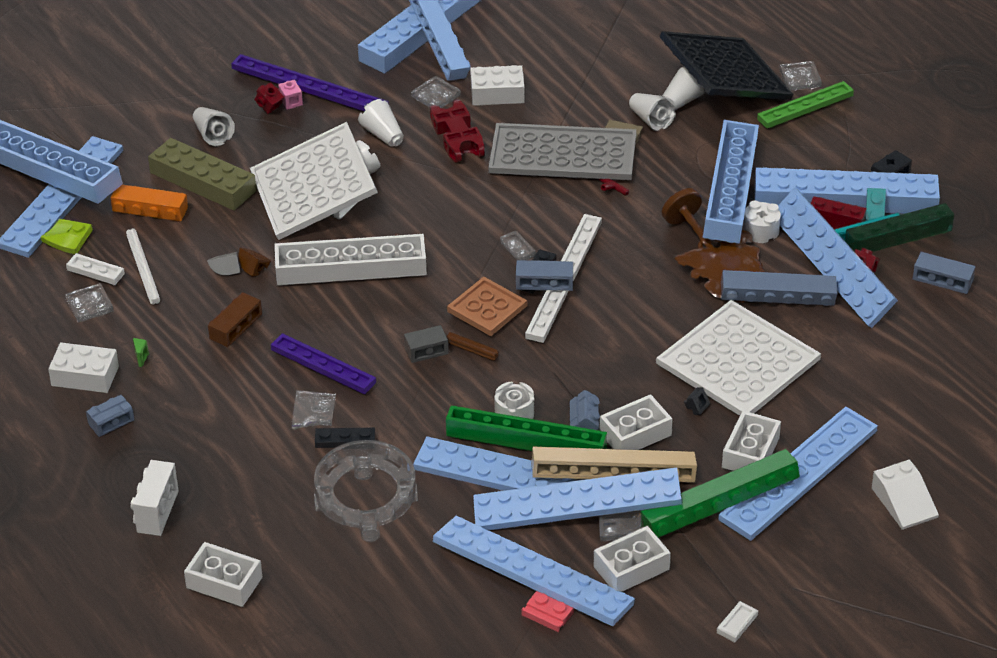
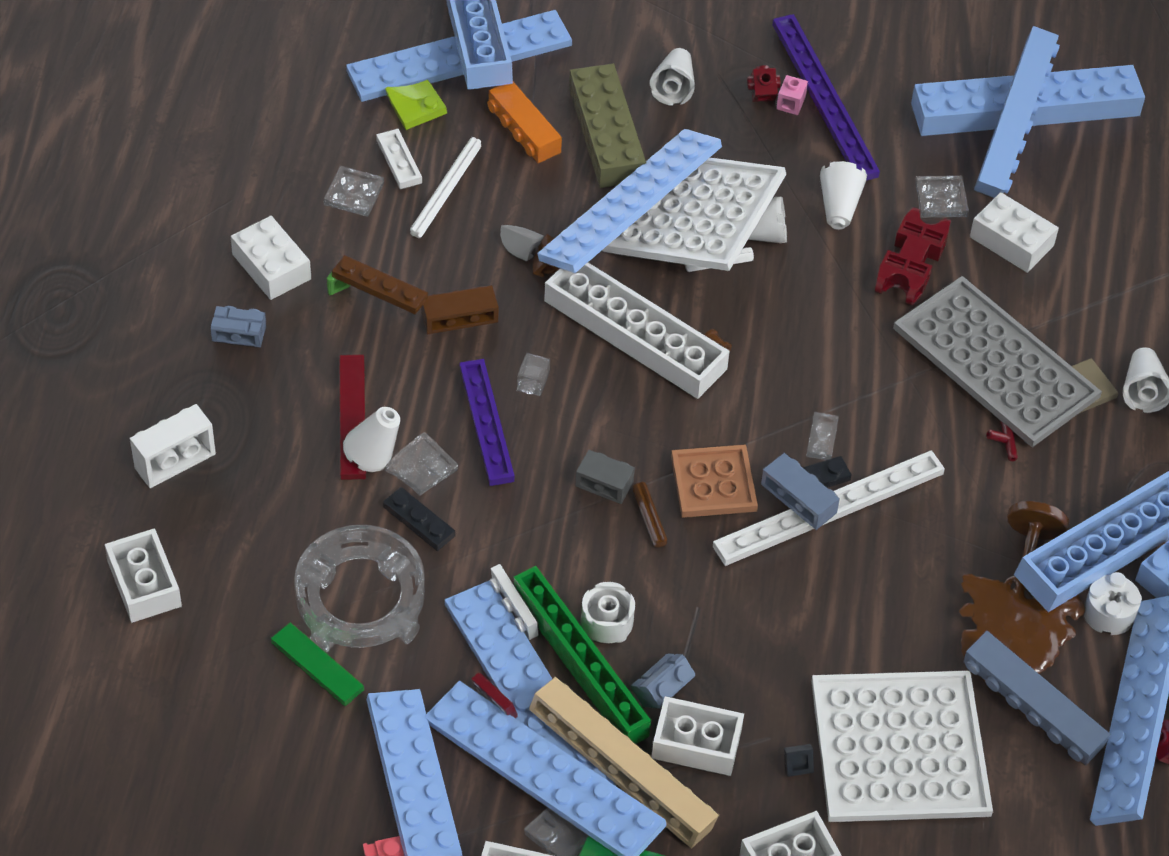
camera: 40 degrees right, 10 degrees up
(175, 333) = (379, 284): none -> reddish brown plate
(239, 415) = (351, 408): none -> dark red tile
(271, 198) = (629, 200): none -> light blue plate
(275, 409) = (373, 440): none -> white cone
(320, 322) = (533, 374): none -> clear brick
(380, 547) = (317, 664): none -> green tile
(454, 435) = (513, 602): none -> white plate
(496, 485) = (492, 694): none -> dark red tile

